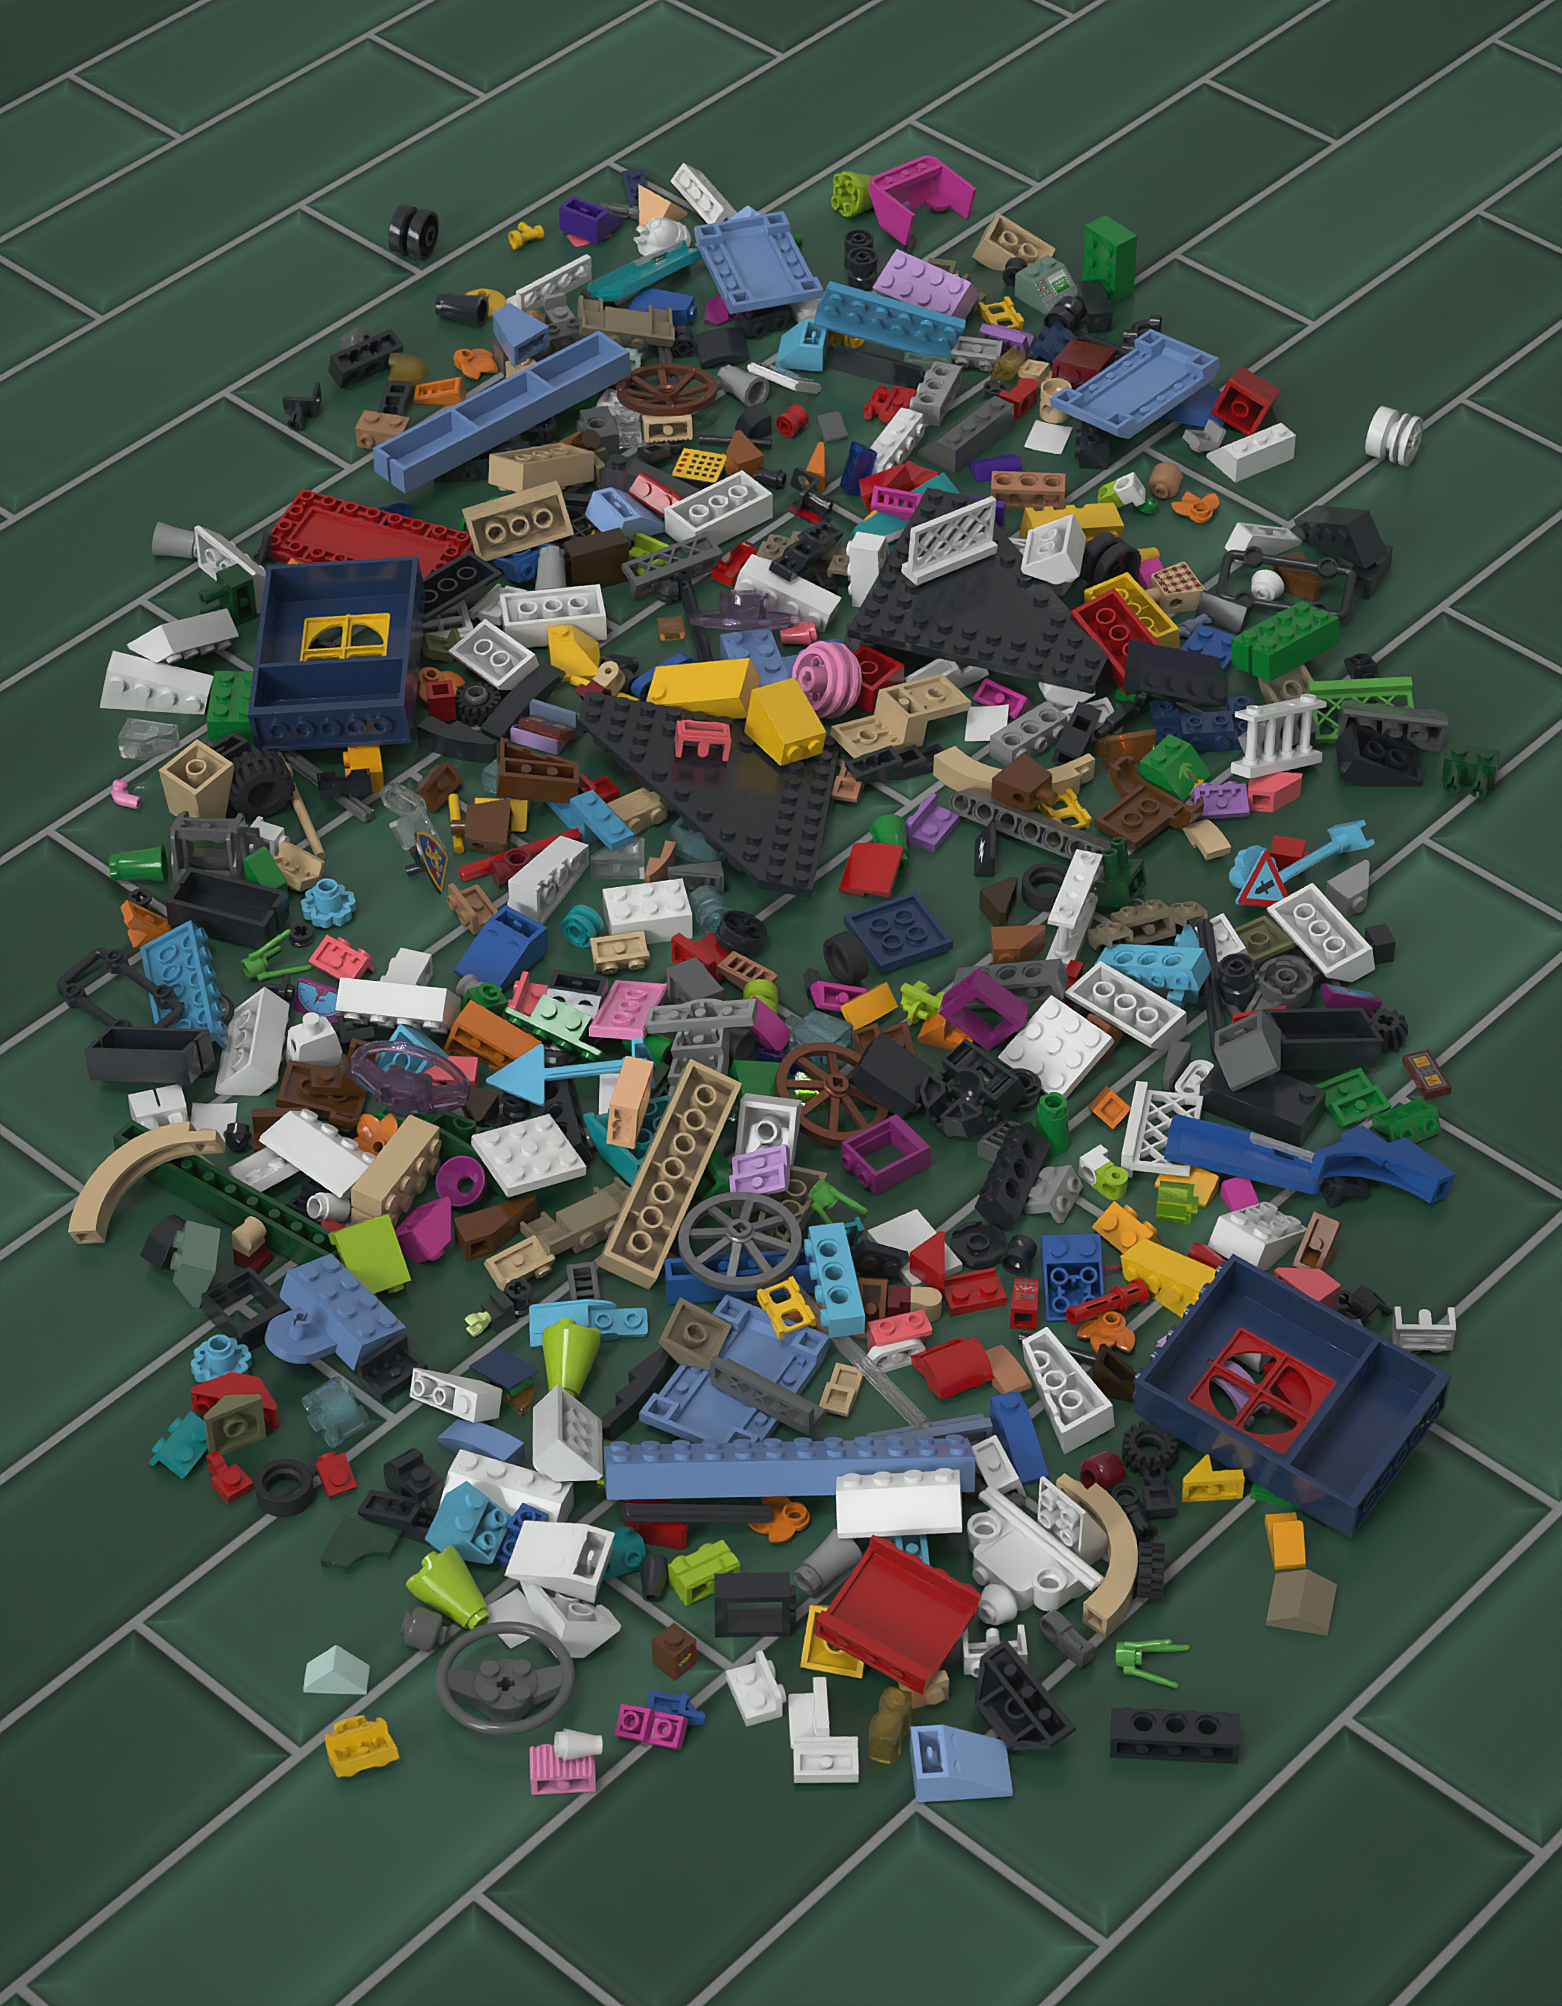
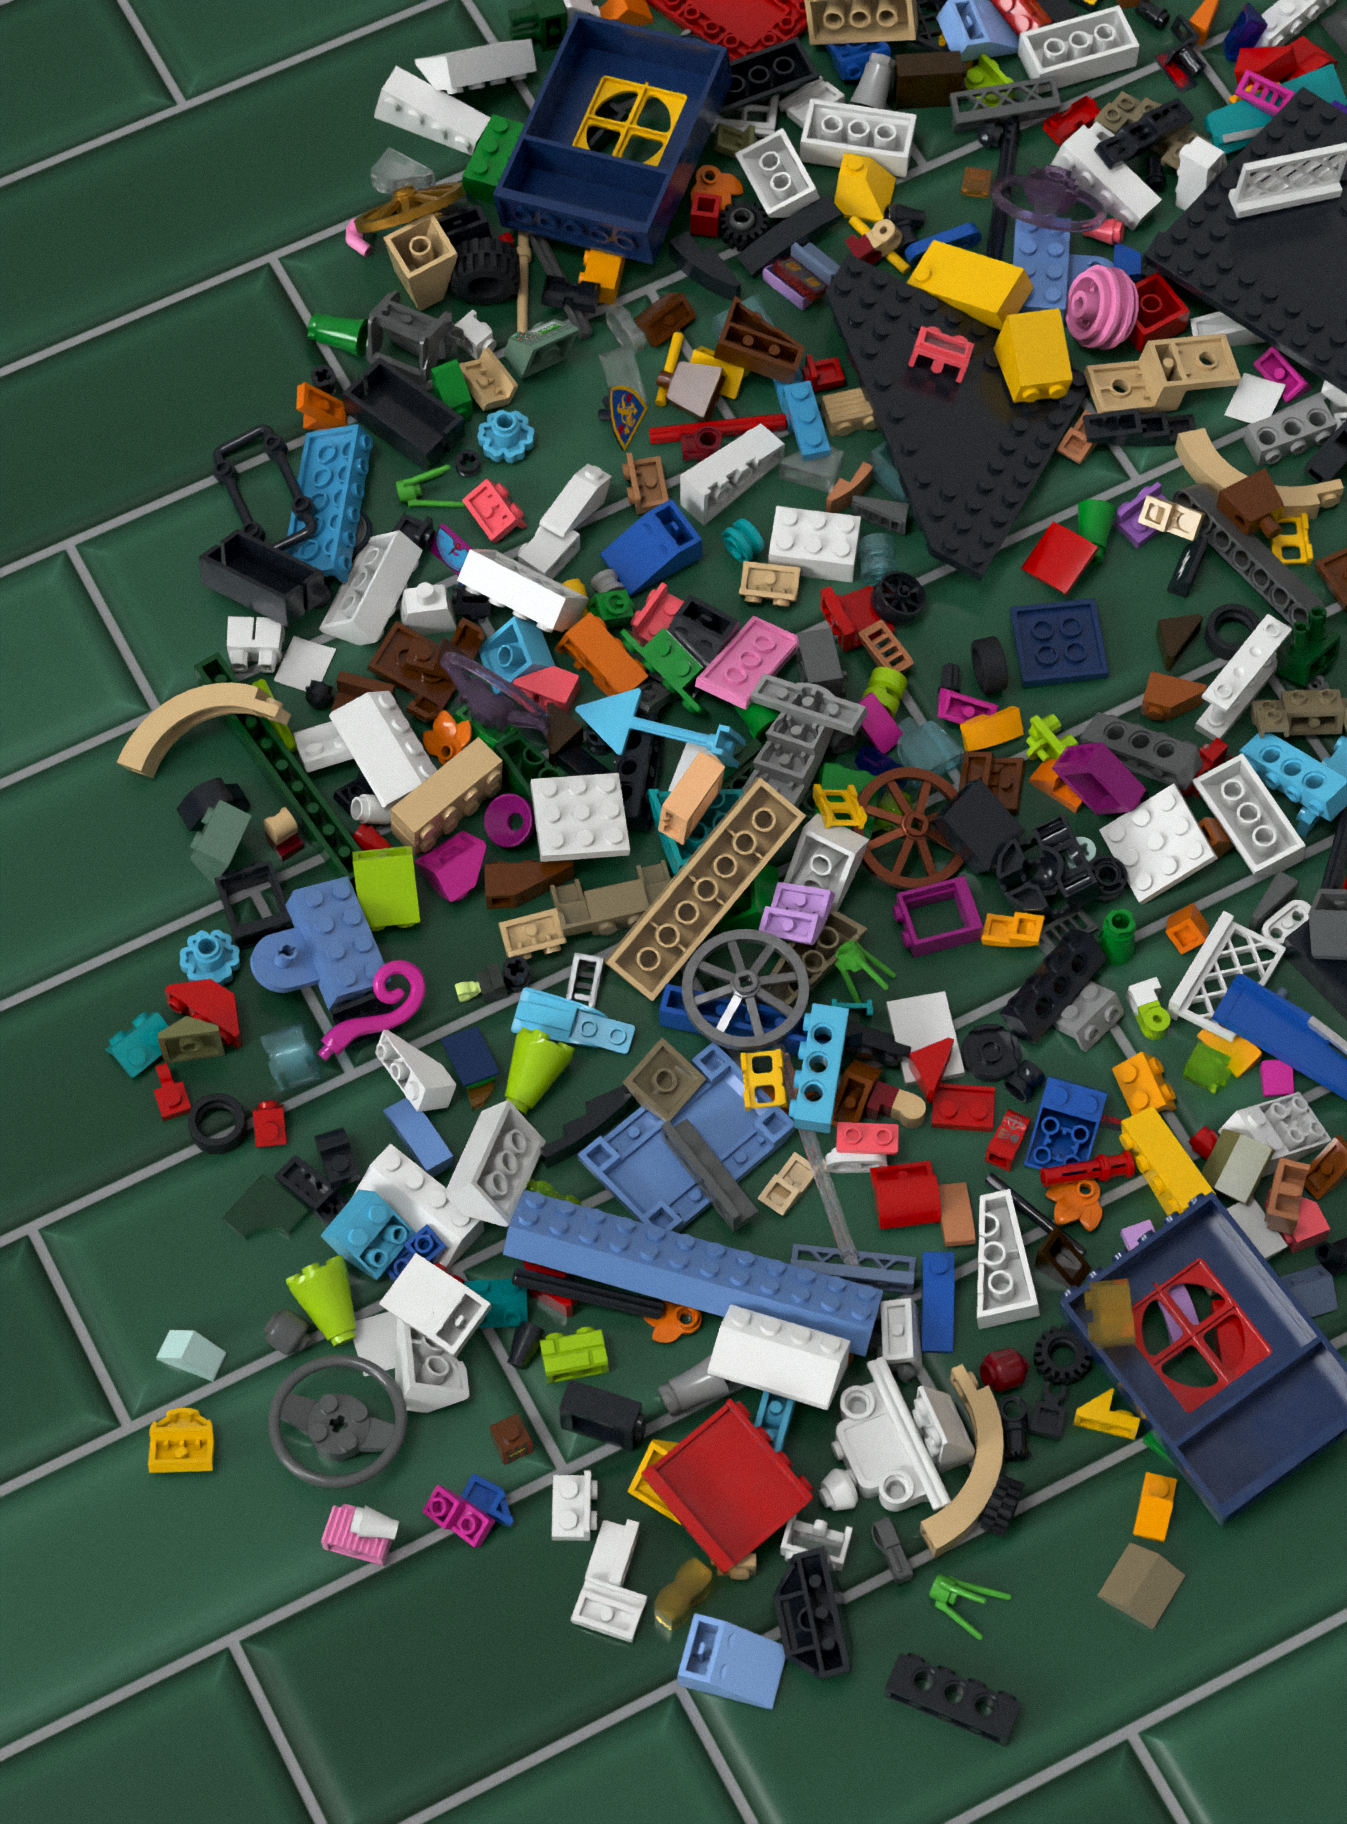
camera: 20 degrees right, 20 degrees up
(165, 746) = (408, 204): none -> pearl gold wheel
(334, 828) = (540, 347): none -> sand green slope
(378, 1379) = (345, 1032): none -> dark pink plant
(419, 928) = (577, 501): none -> white slope
(767, 1080) = (849, 806): none -> yellow piece
(950, 1151) = (1014, 931): none -> light orange slope
(956, 815) = (1171, 517): none -> tan slope
(1187, 1371) = (1111, 1314): none -> clear yellow brick
(1241, 1241) = (1236, 1165): none -> slope
(1290, 1259) = (1286, 1195): none -> nougat window

